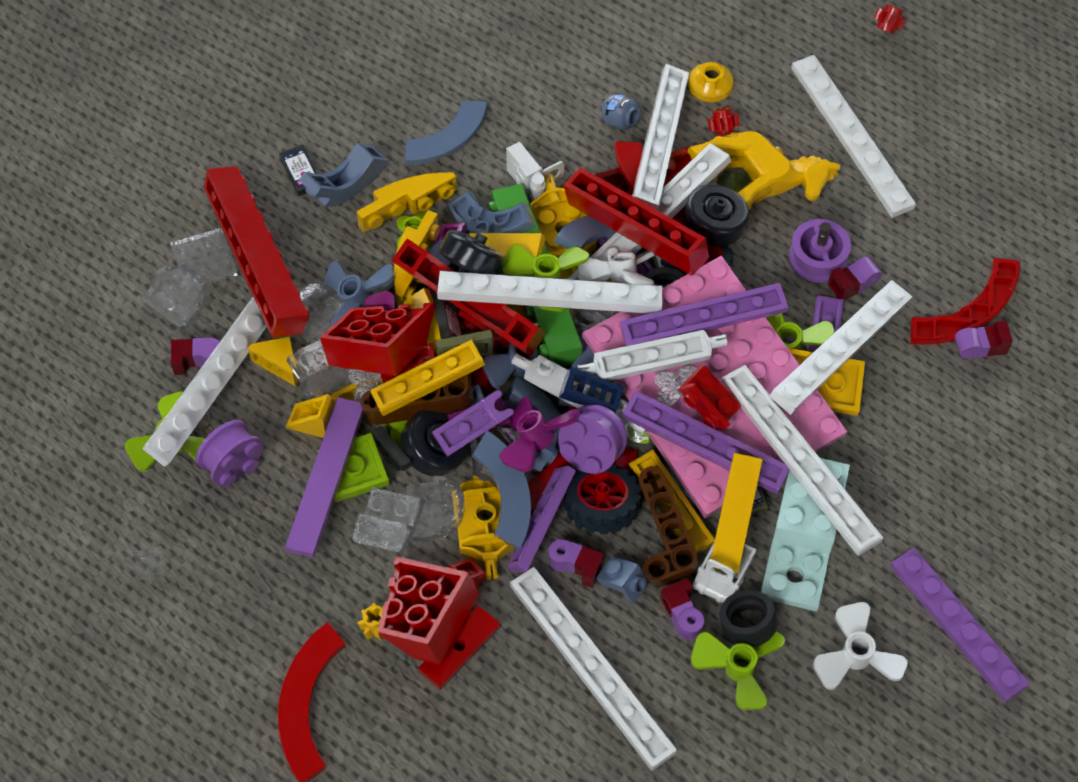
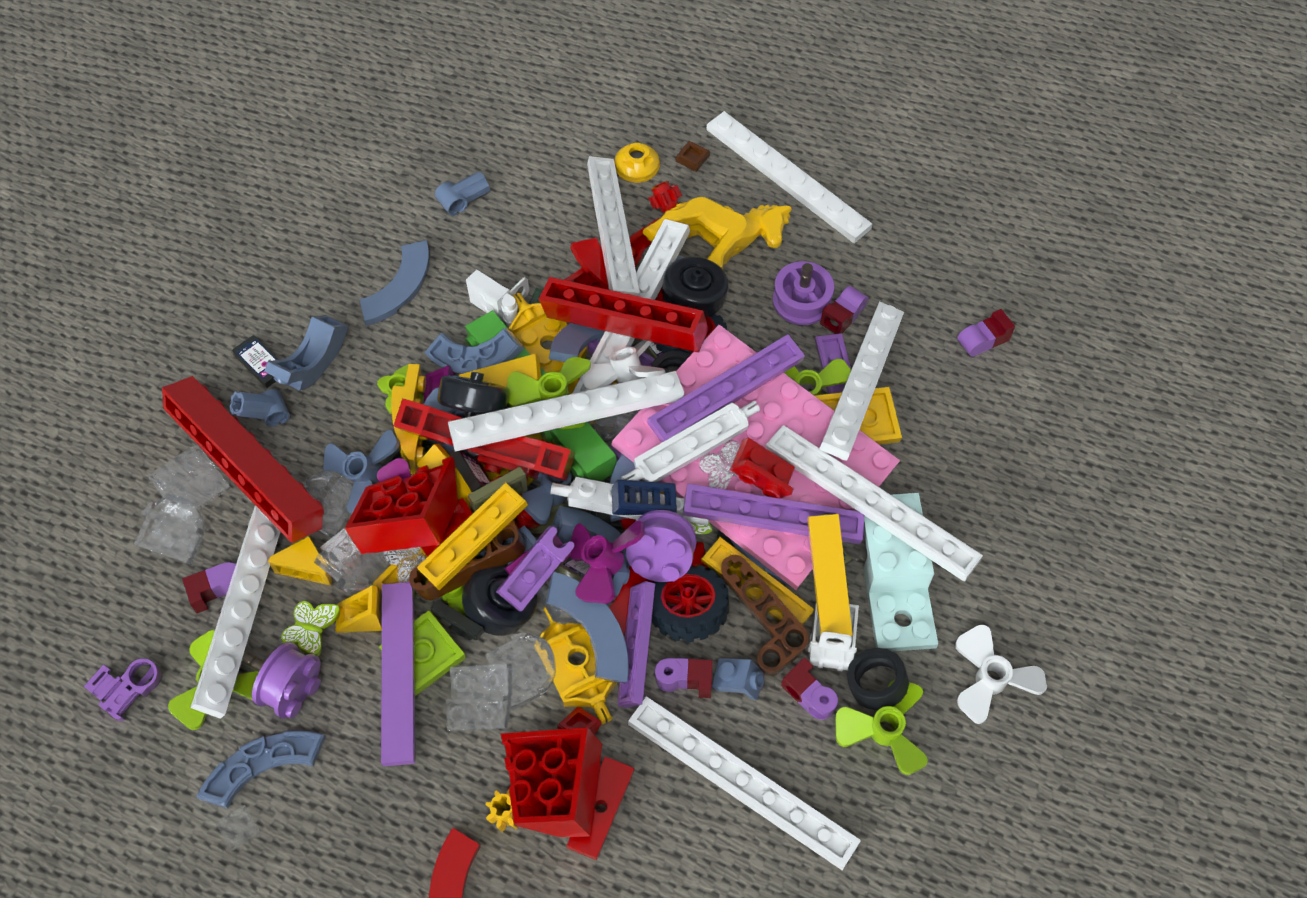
camera: 20 degrees left, 0 degrees up
(91, 422) = (122, 694): none -> medium lavender piece
(184, 511) = (257, 757): none -> sand blue tile
(265, 413) = (309, 626): none -> lime animal
(292, 212) = (266, 406): none -> sand blue piece
(414, 193) = (384, 351): yellow slope -> none
(528, 68) = (458, 195): none -> sand blue piece
(620, 111) = (562, 213): sand blue head -> none
(734, 180) = (696, 249): clear green tile -> none
(767, 90) = (692, 156): none -> reddish brown tile
(889, 18) = (781, 59): red gear -> none
(959, 625) = (1075, 616): medium lavender plate -> none
(973, 315) = (966, 312): red tile -> none

